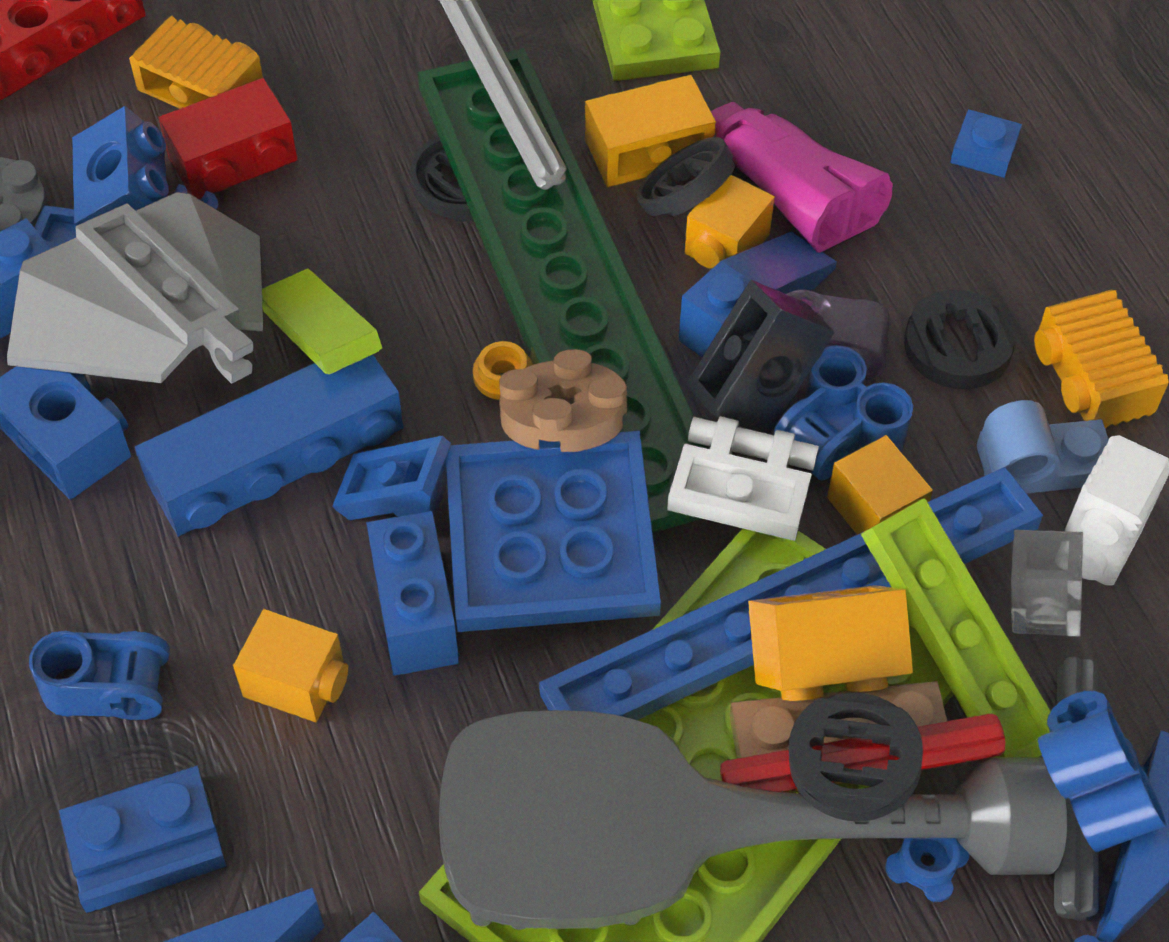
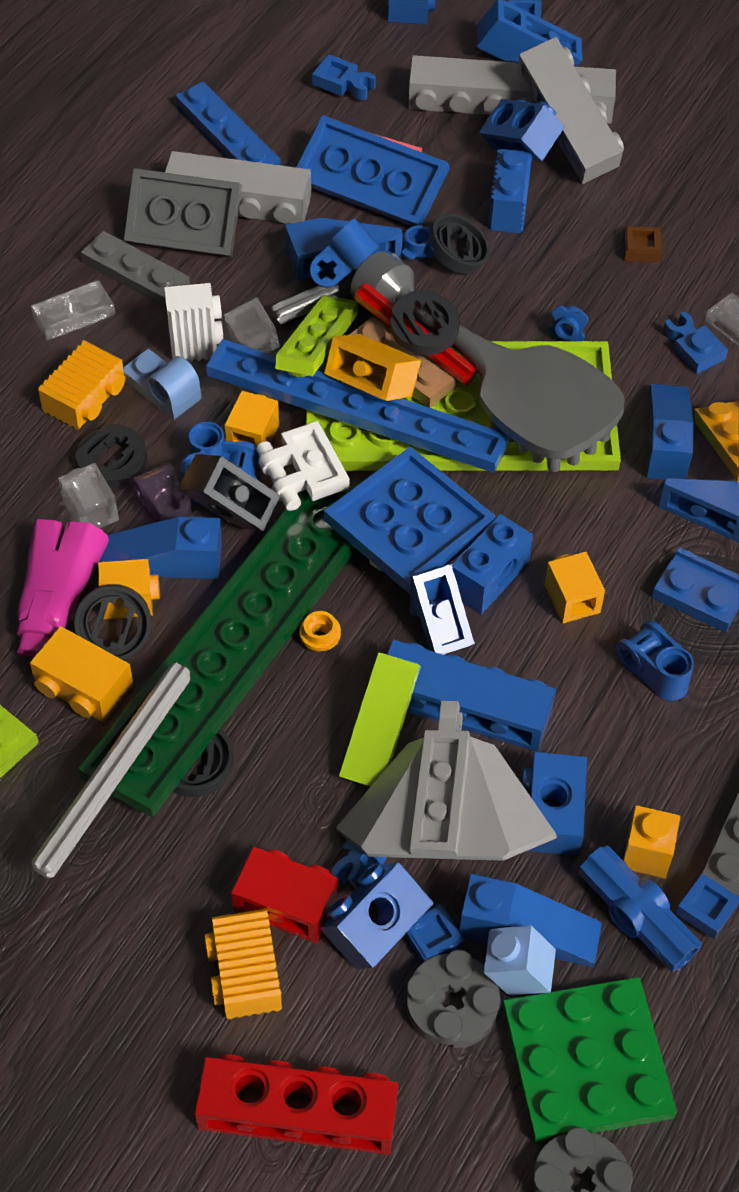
camera: 130 degrees left, 0 degrees up
(563, 402) = (349, 570): medium nougat plate -> none
(899, 263) = (88, 496): none -> clear brick

